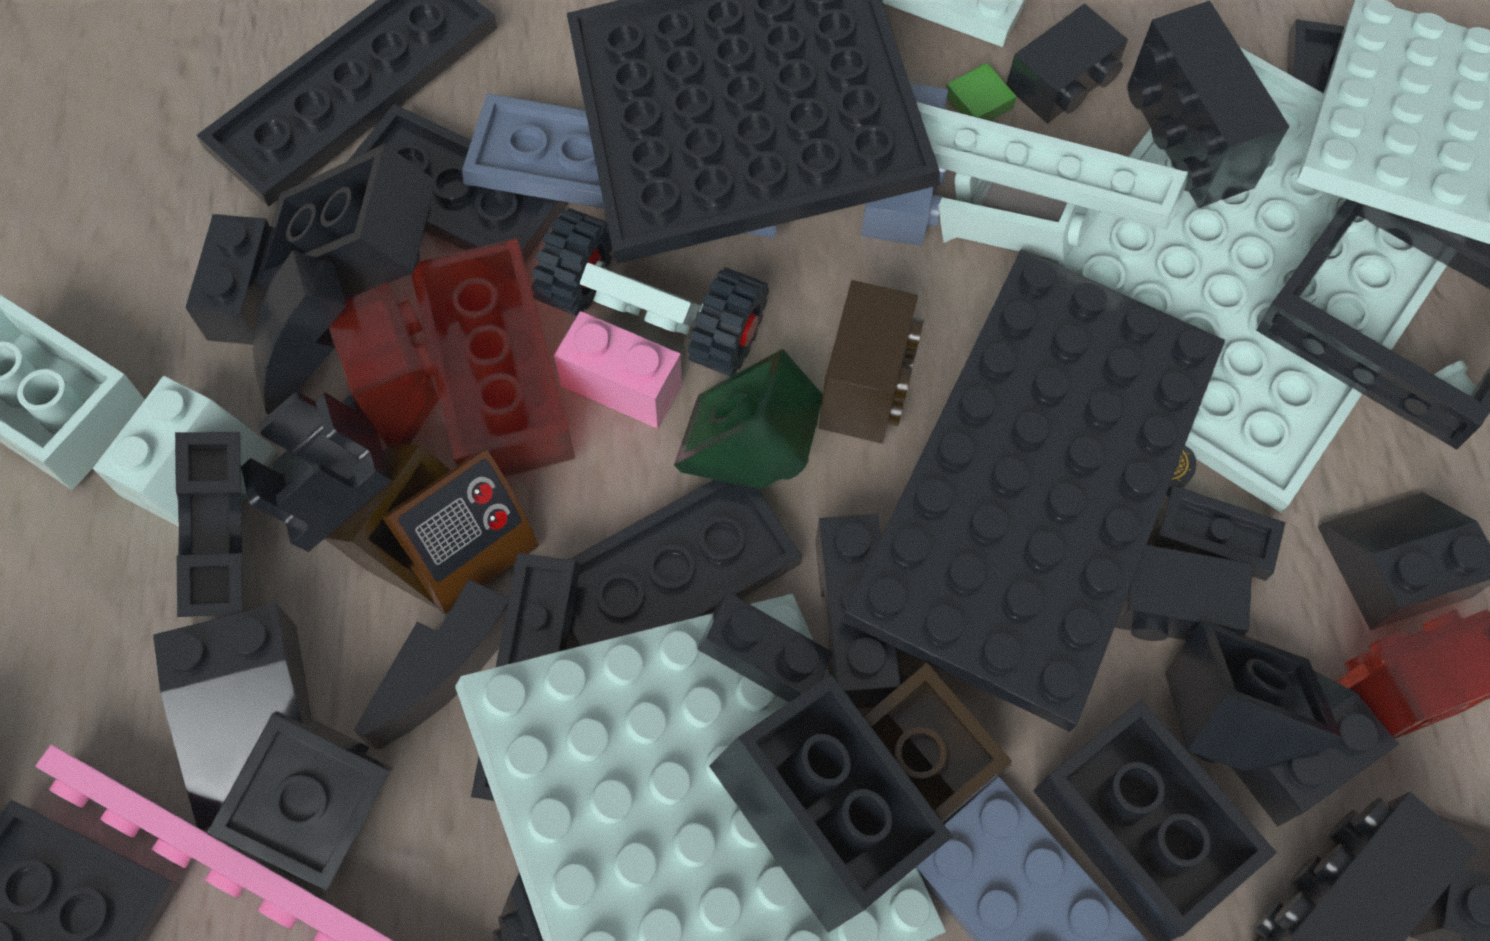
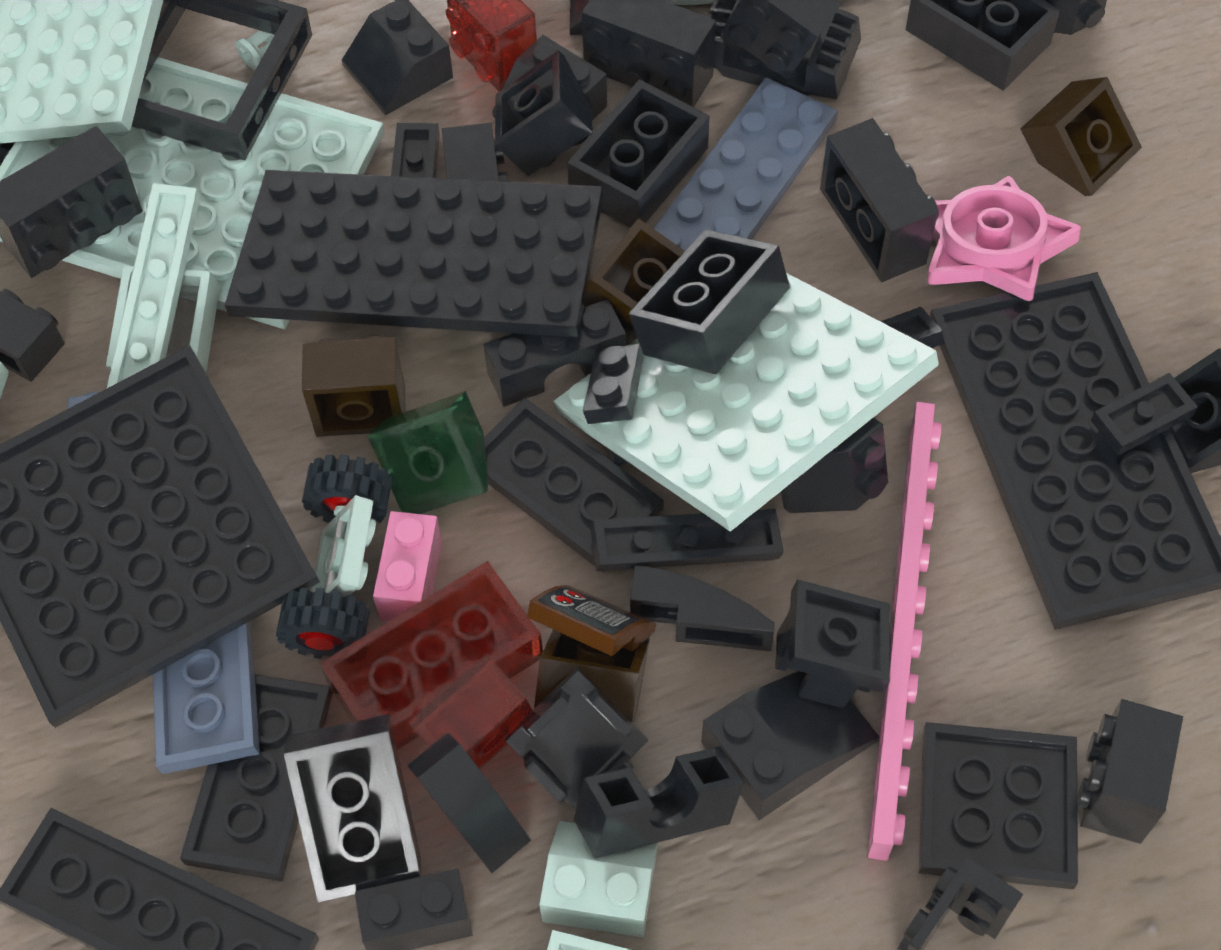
camera: 105 degrees left, 5 degrees down
(981, 94) = (49, 391): bright green tile -> none

